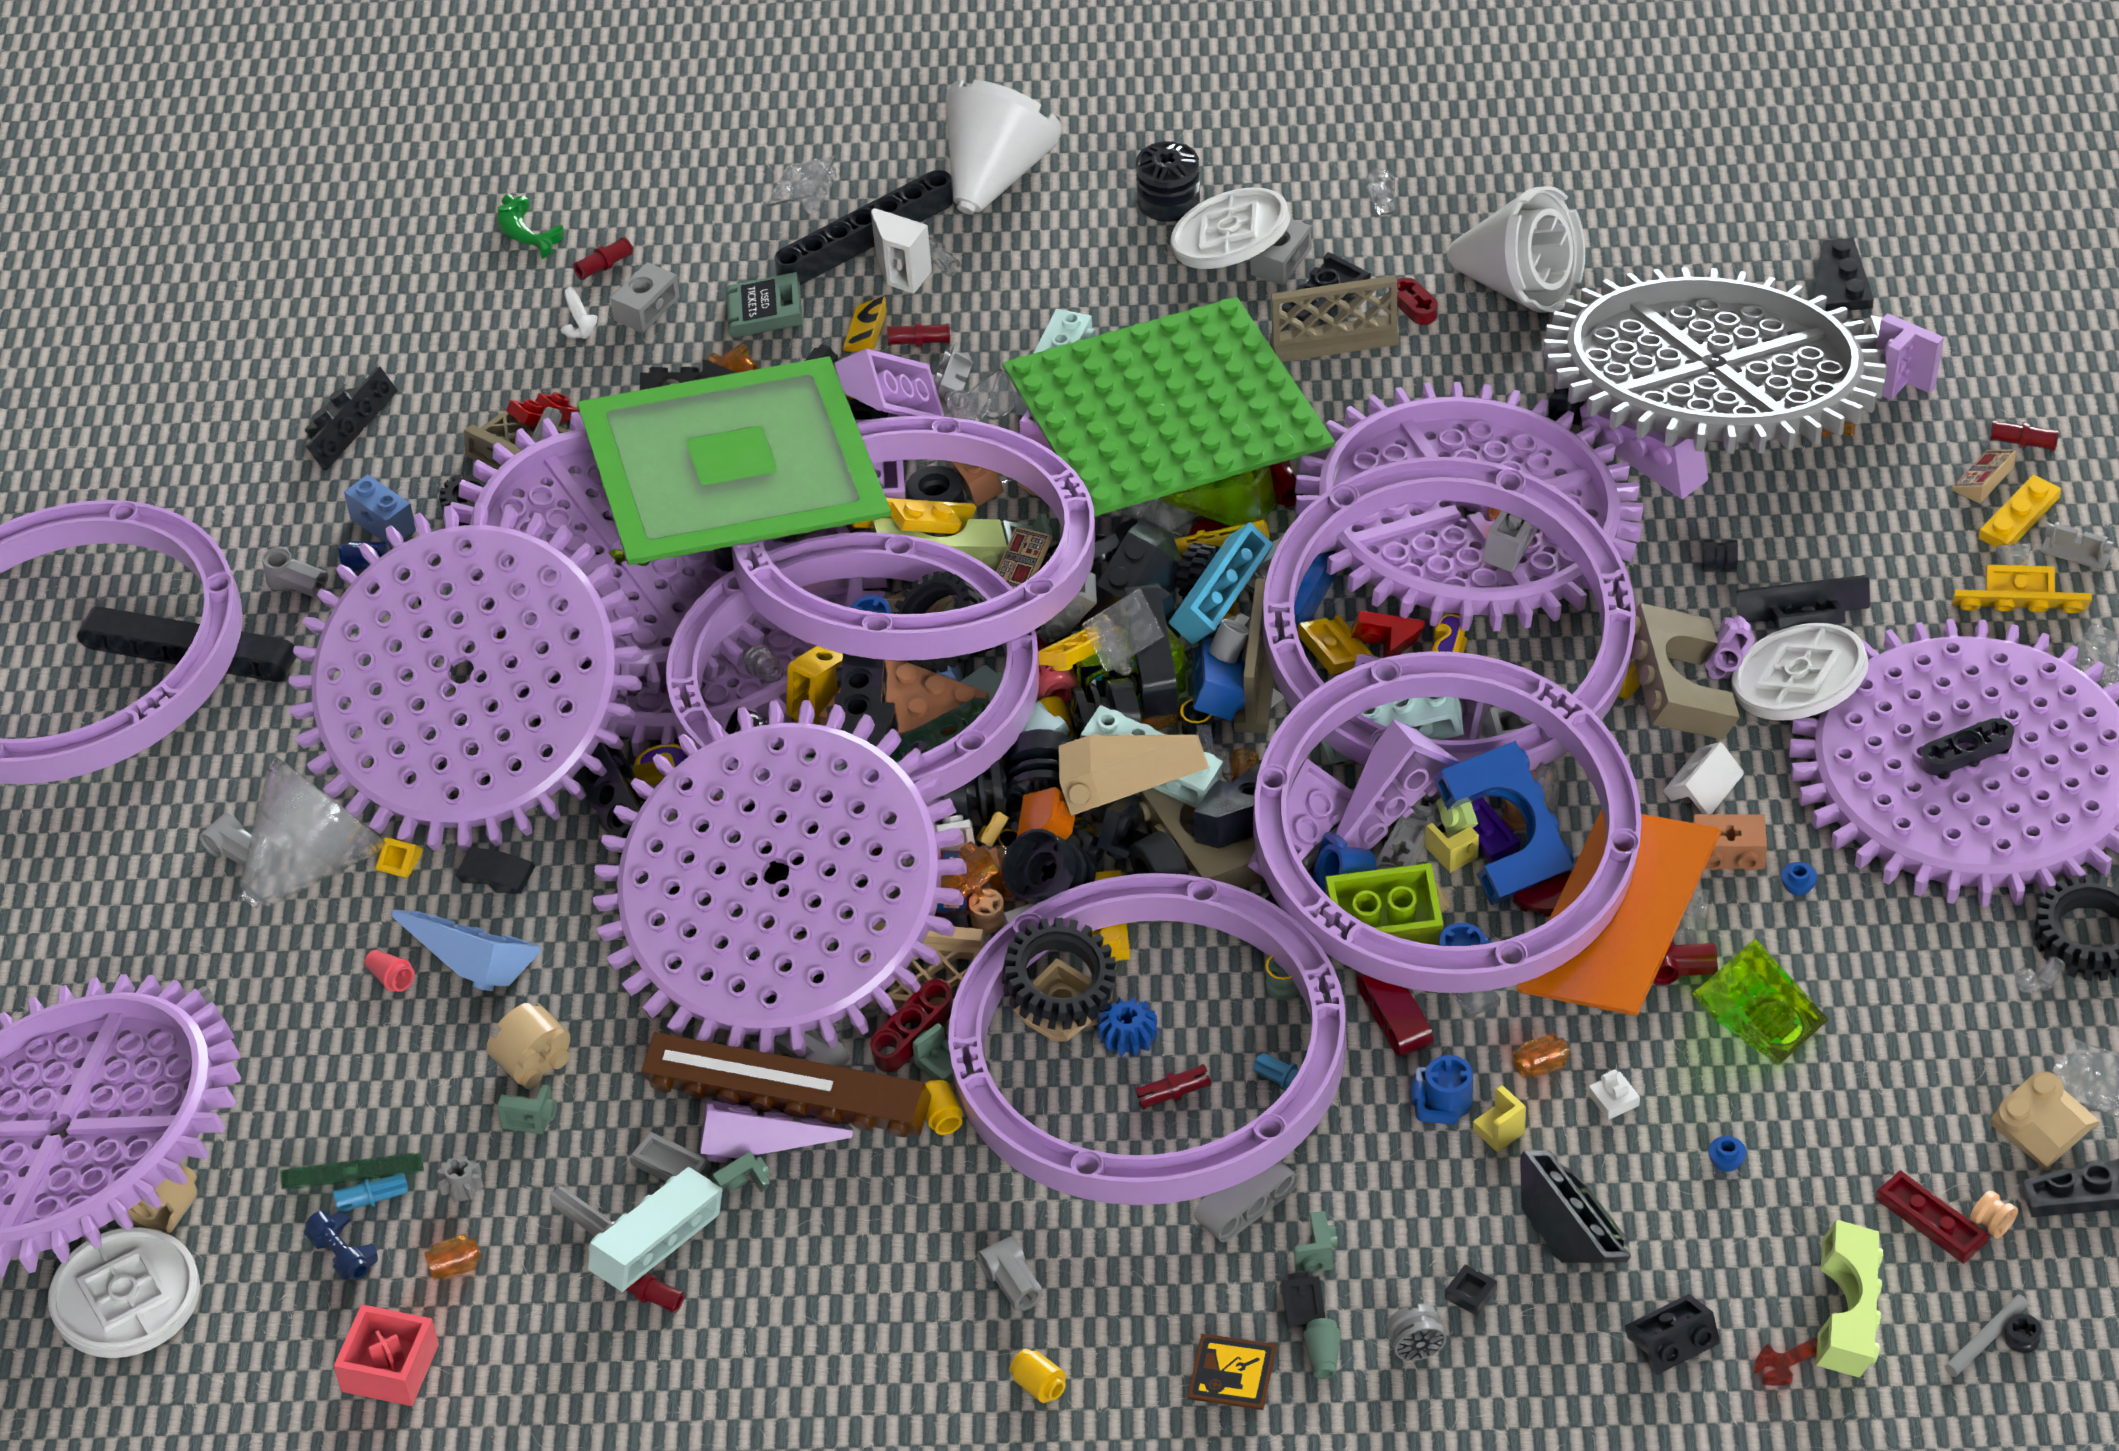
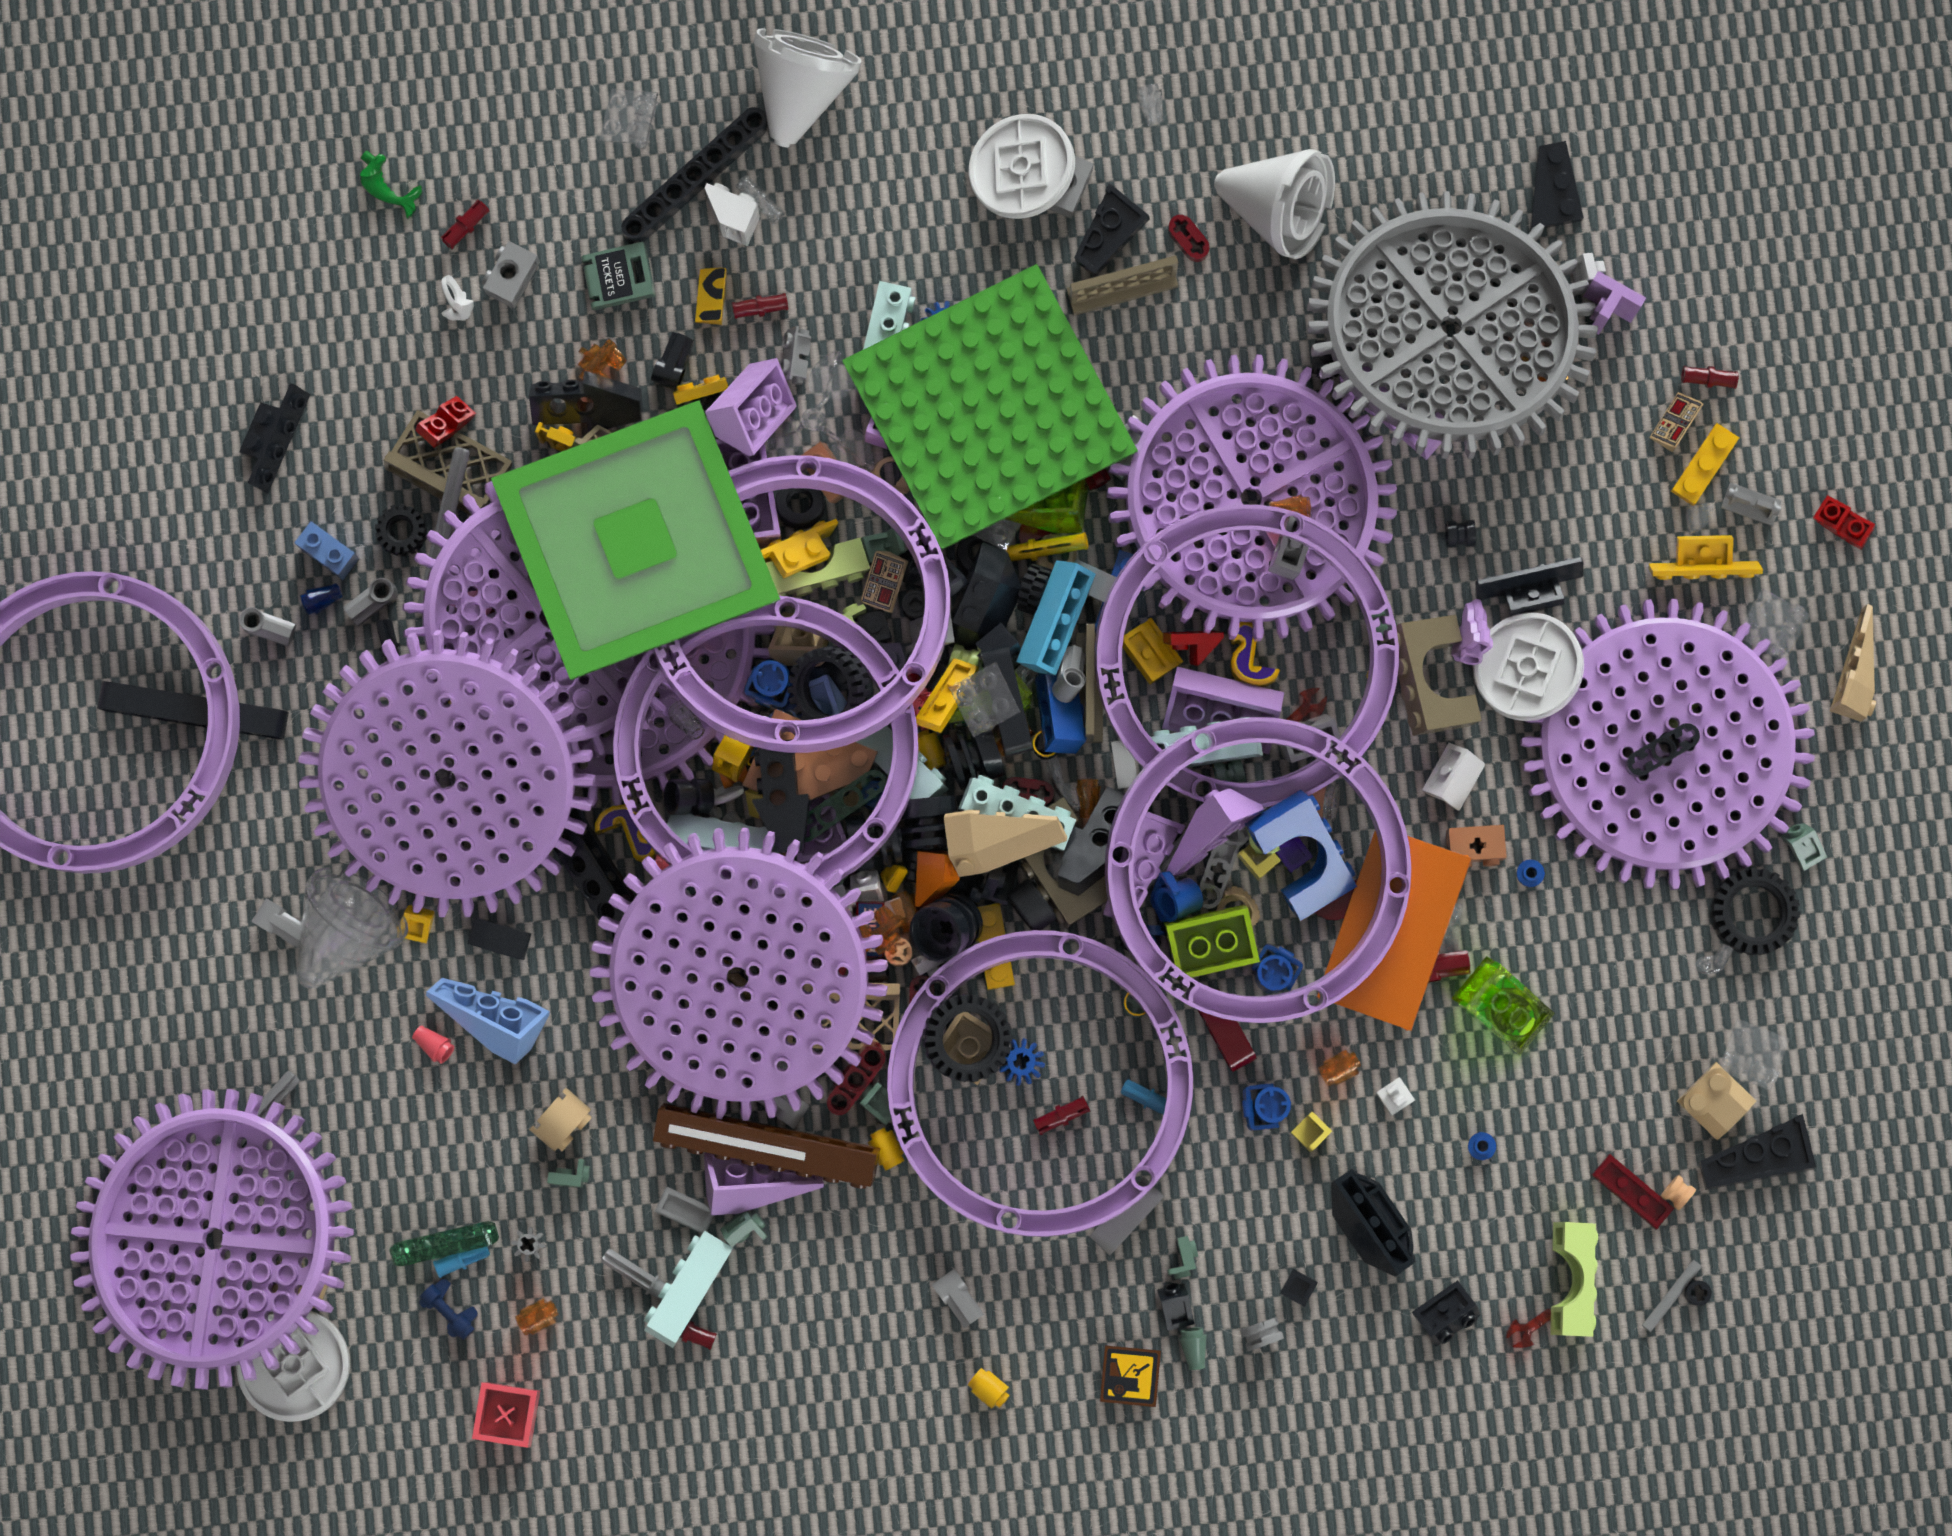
camera: 10 degrees left, 35 degrees up
(1167, 180) = (961, 123): black wheel -> none

